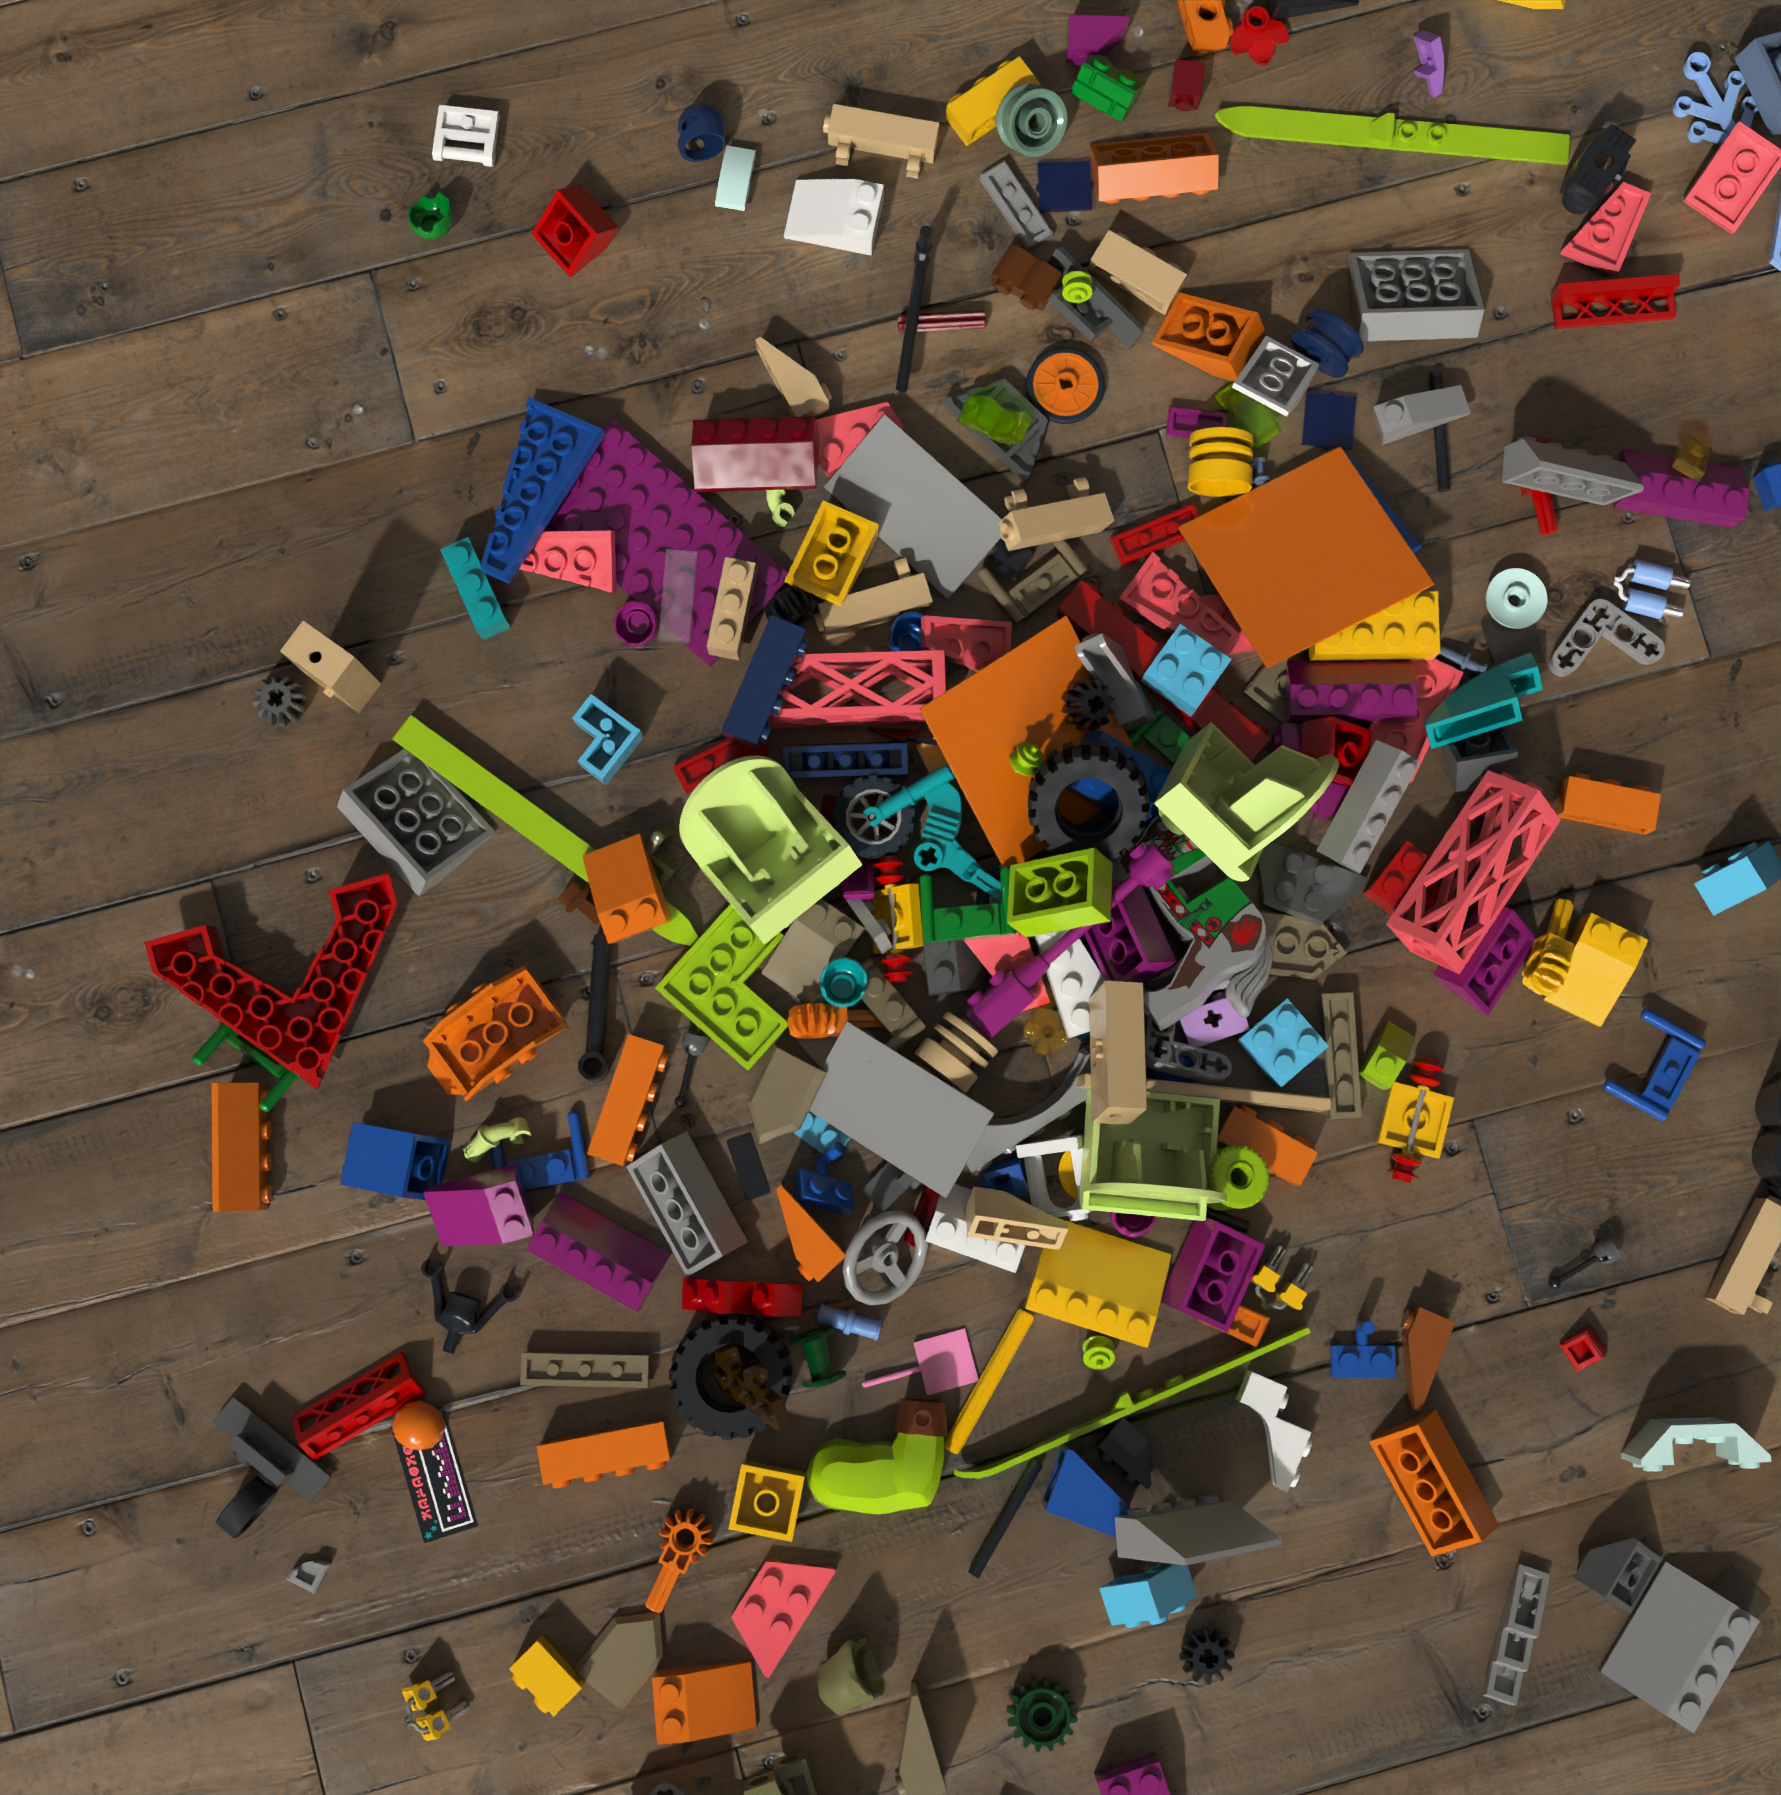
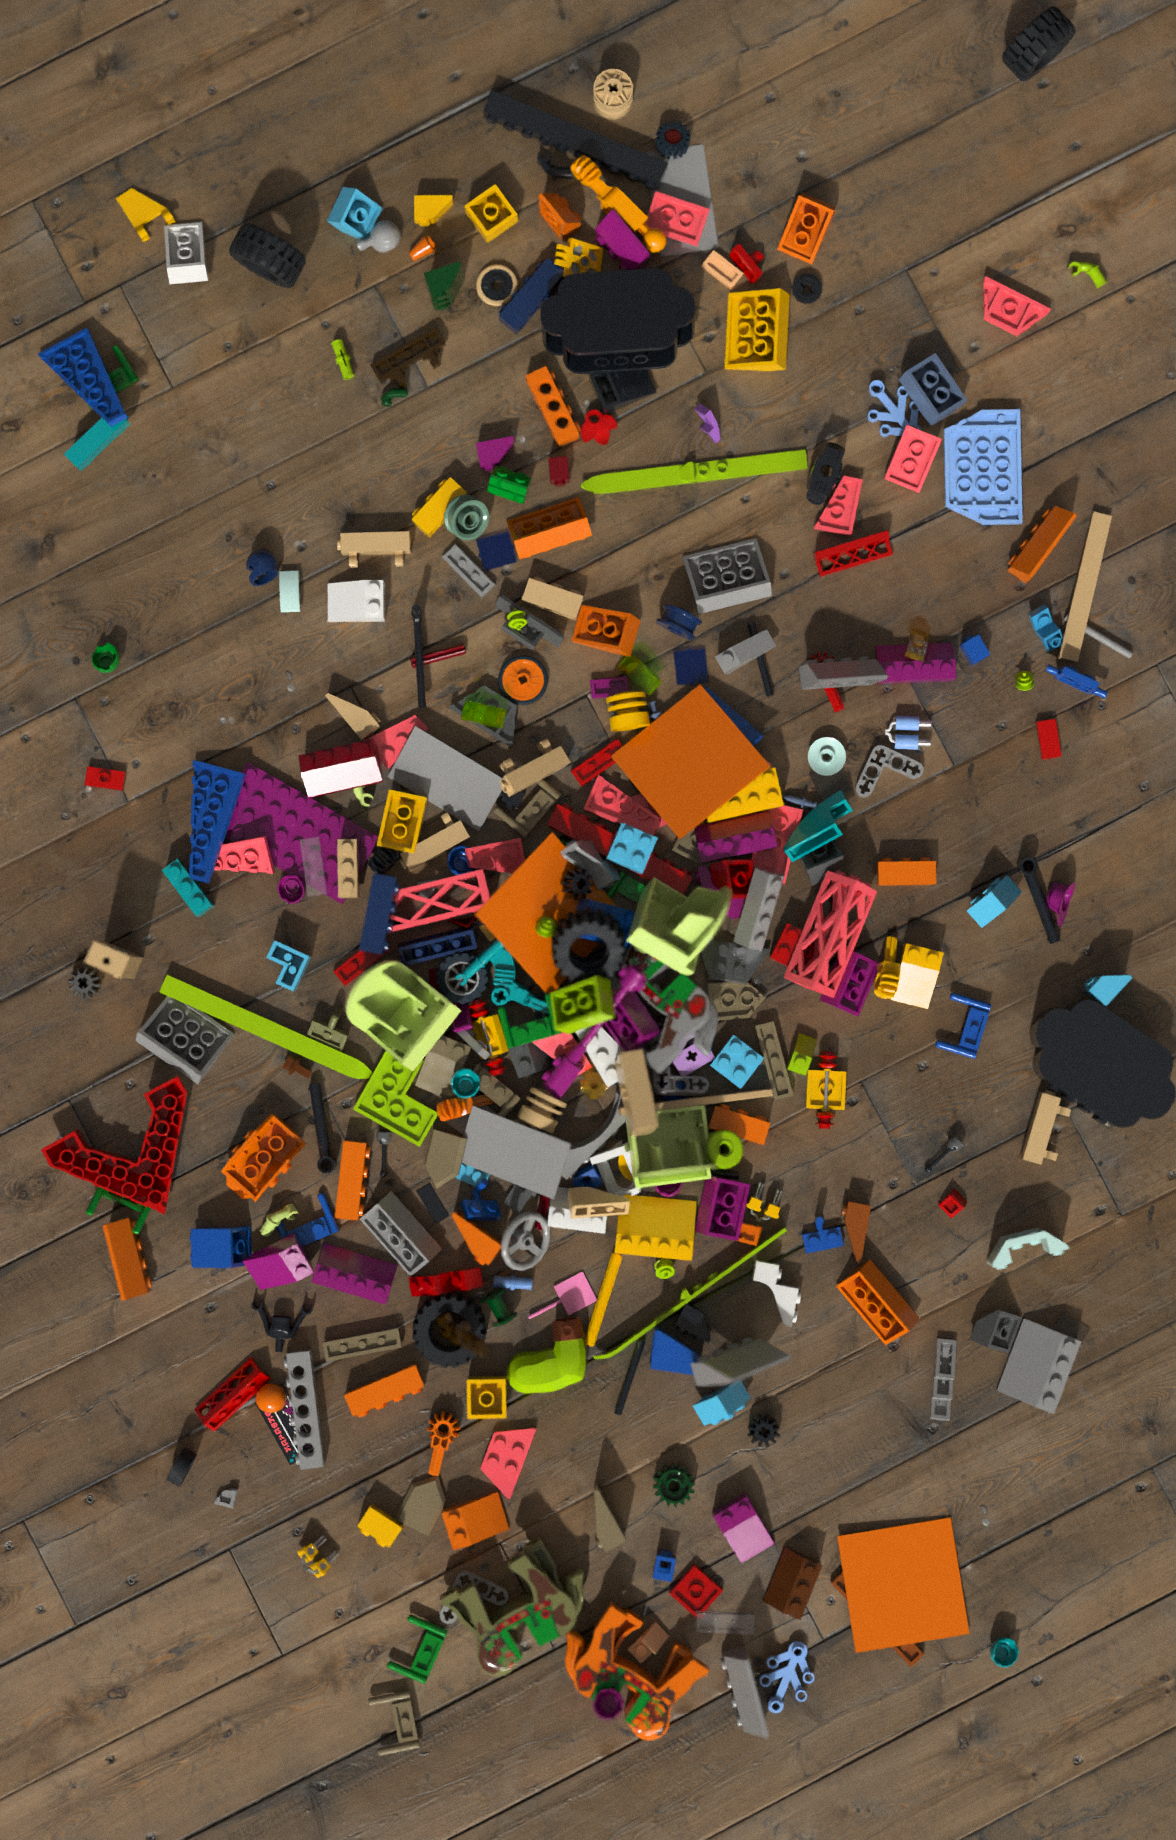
camera: 10 degrees left, 5 degrees up
(269, 1451) = (187, 1432): dark grey bracket -> none
(387, 398) = (105, 778): none -> red plate
(448, 1536) = (316, 1457): none -> light grey brick
(468, 126) = (115, 593): white plate -> none
(574, 229) = (196, 646): red slope -> none
(626, 889) = (322, 1054): orange slope -> none
(850, 1677) = (557, 1488): olive piece -> none
(1026, 278) = (484, 617): reddish brown brick -> none
(1276, 376) = (650, 652): white slope -> none

